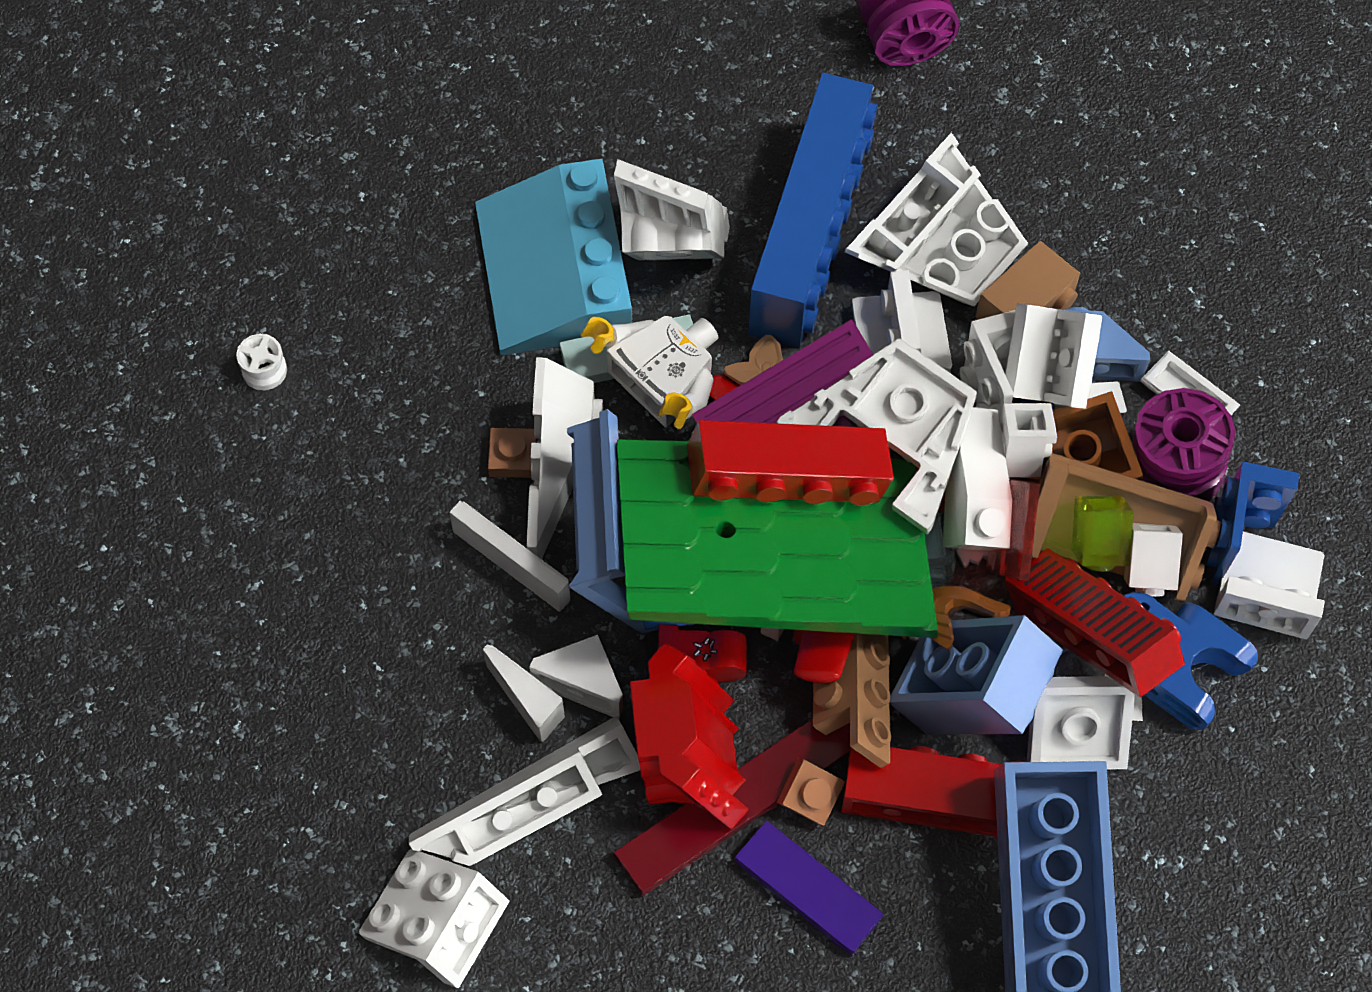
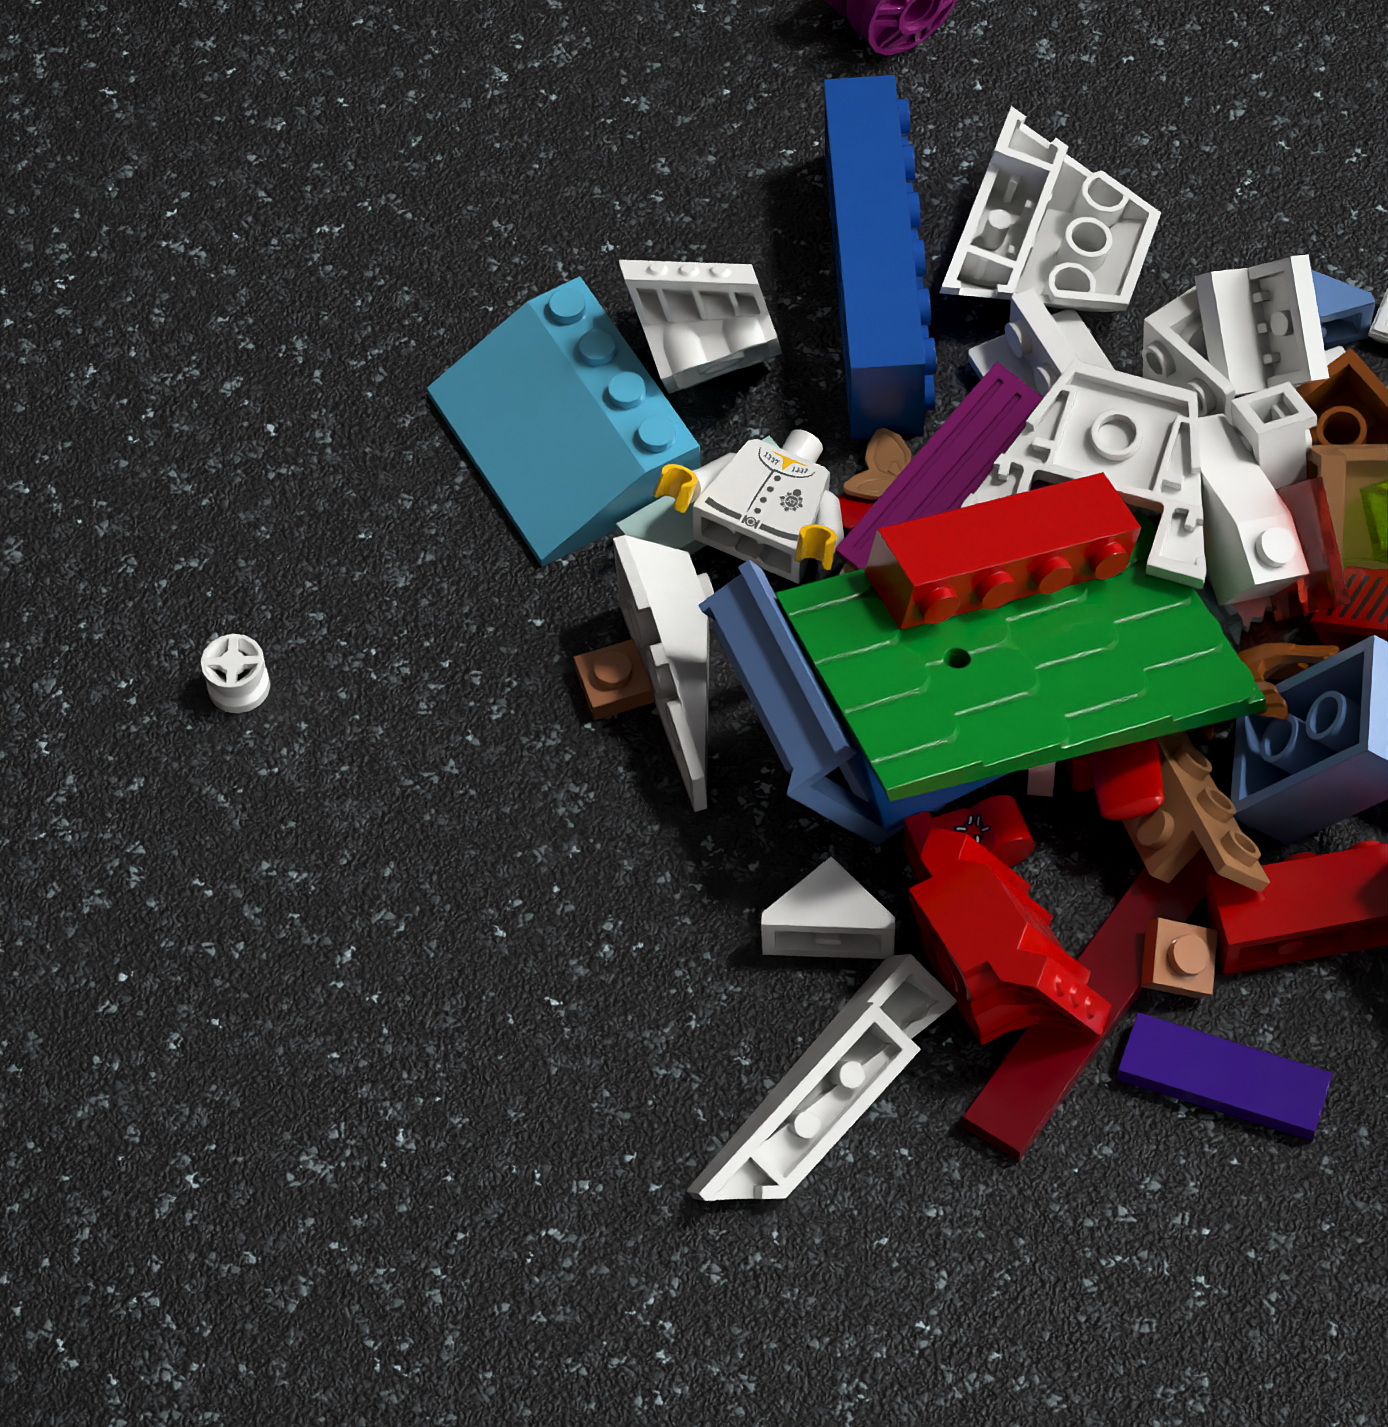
camera: 15 degrees left, 5 degrees down
(435, 915) = (767, 1268): white bracket -> none
(510, 555) = (670, 803): white tile -> none
(533, 699) = (767, 963): white slope -> none
(1035, 280) = (1187, 247): medium nougat brick -> none

